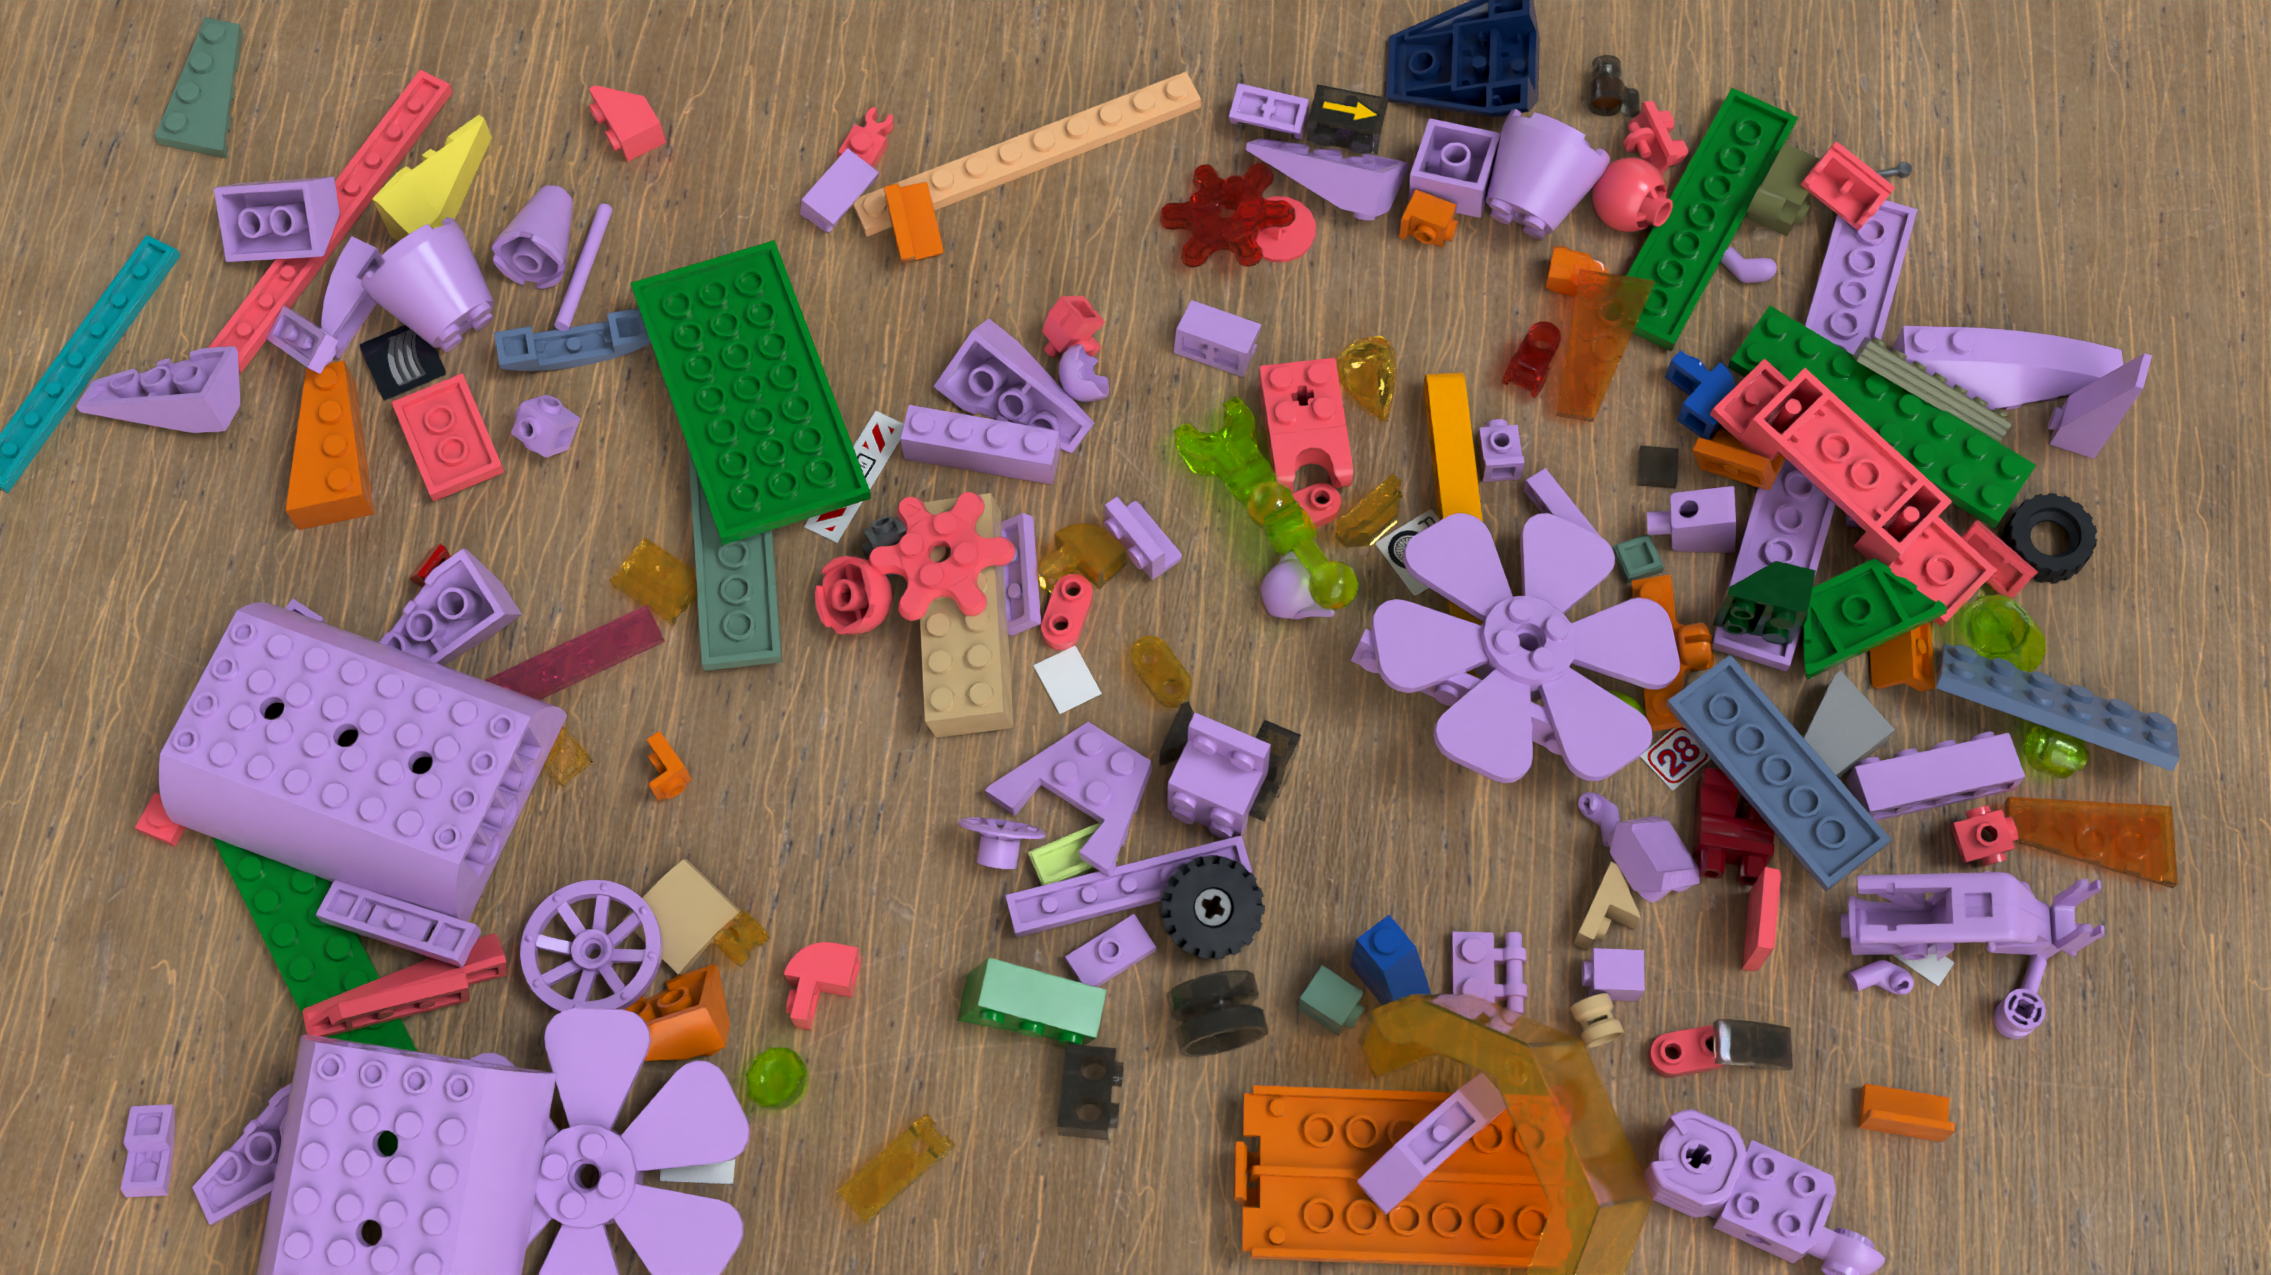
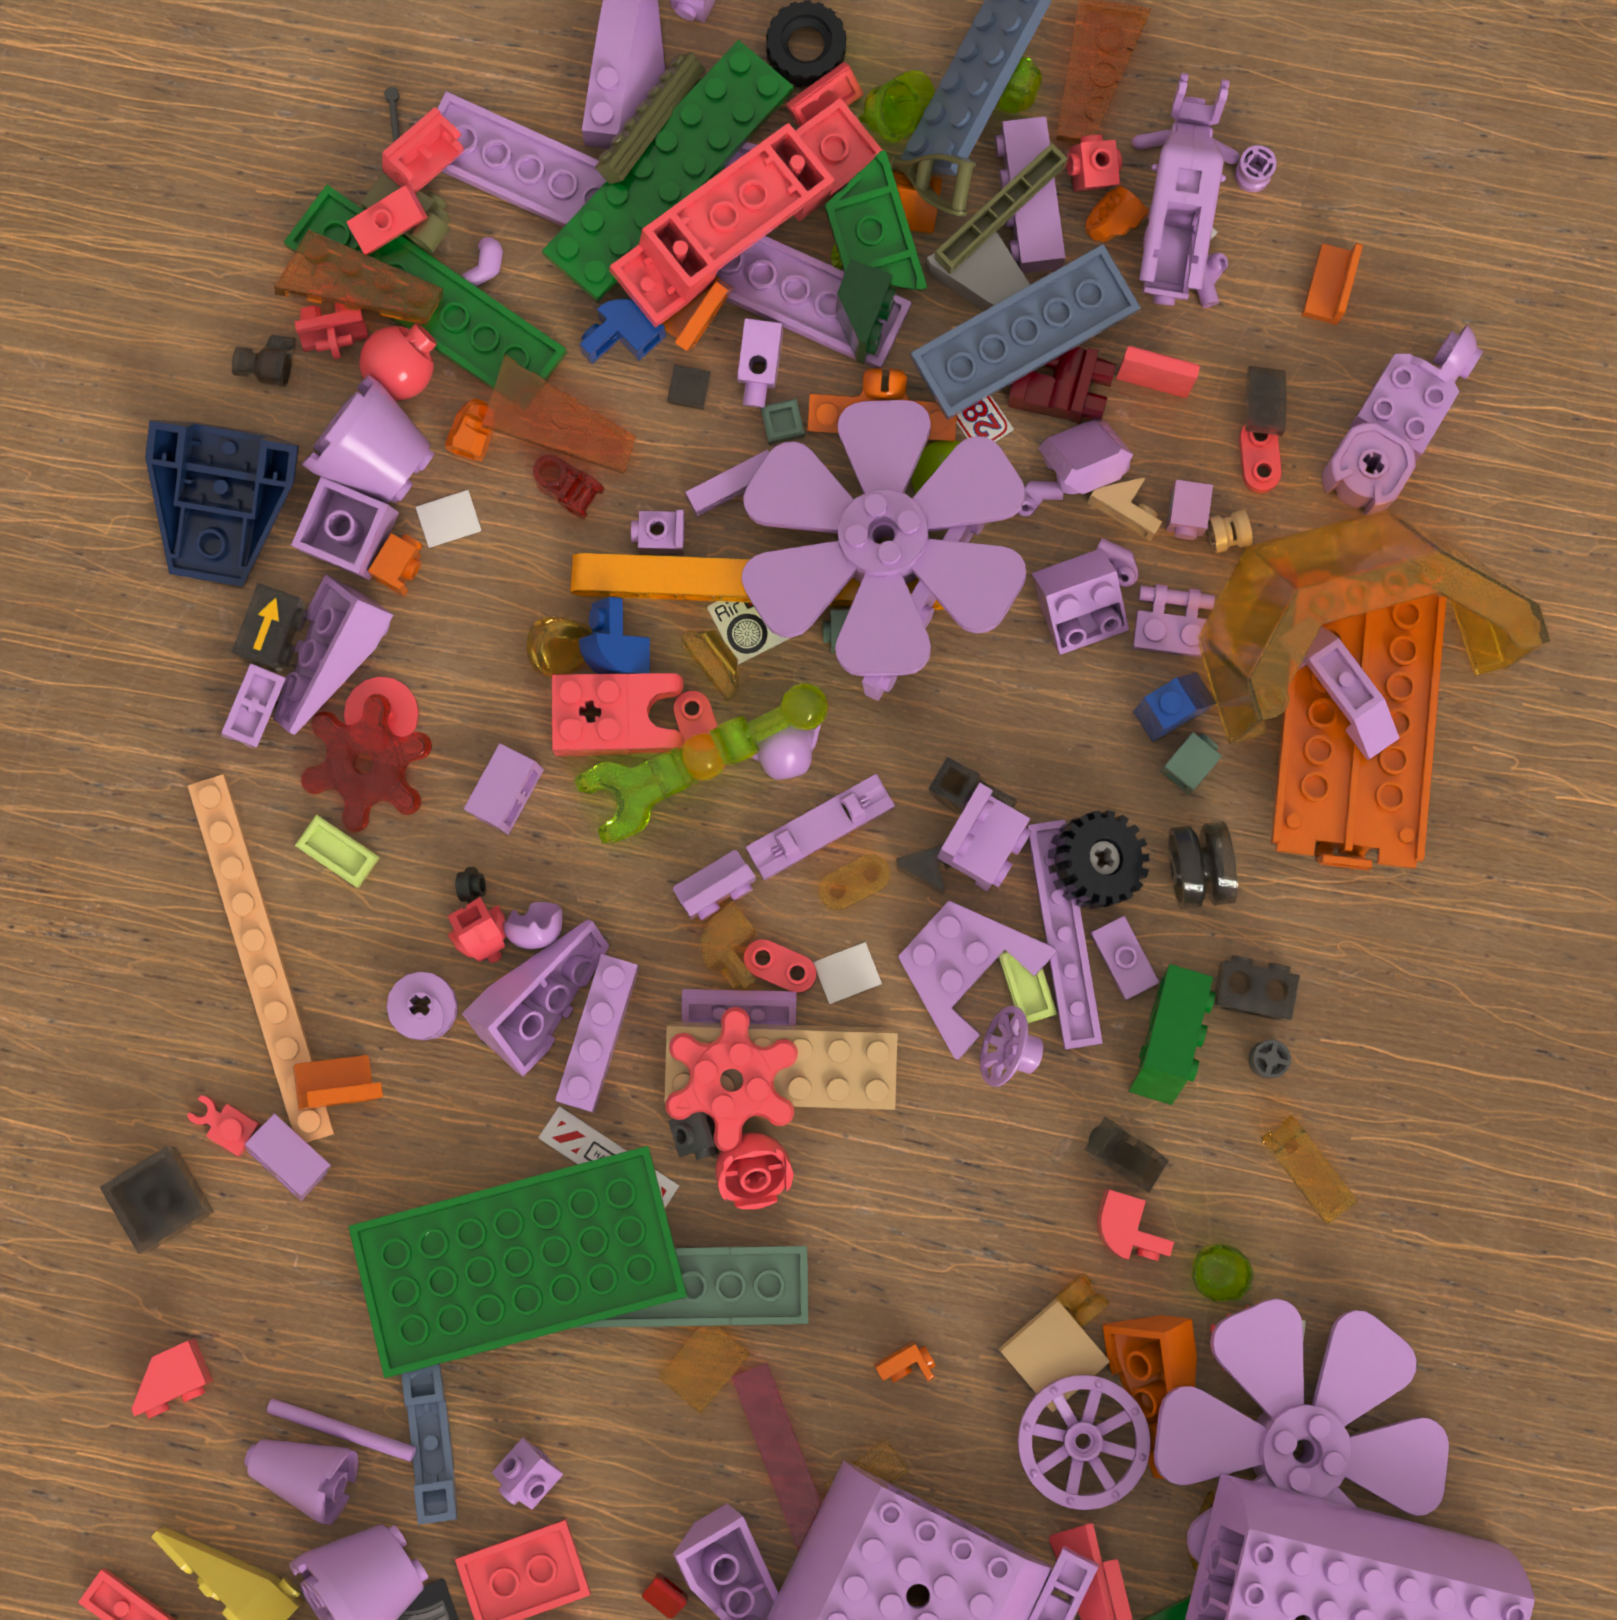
camera: 90 degrees left, 15 degrees up
(791, 86) = (156, 1199): none -> clear smoke brick
(898, 965) = (1125, 1155): none -> clear smoke brick
(993, 289) = (424, 986): none -> lavender piece
(1014, 1105) = (1276, 1060): none -> dark grey wheel
(1118, 318) = (470, 885): none -> pearl dark grey plate
(1138, 205) = (337, 851): none -> yellowish green tile
(1216, 637) = (819, 827): none -> lavender hinge
(1367, 413) = (607, 648): none -> blue brick
(1483, 266) = (448, 518): none -> white sticker
(1493, 869) = (1081, 601): none -> lavender slope
(1546, 912) = (1122, 560): none -> lavender arm
(1704, 147) = (342, 275): none -> clear orange wing
(1771, 163) = (387, 219): none -> coral plate
(1904, 671) = (919, 174): none -> olive piece
(1909, 733) = (1000, 208): none -> olive piece
(1926, 858) = (1115, 215): none -> orange rock

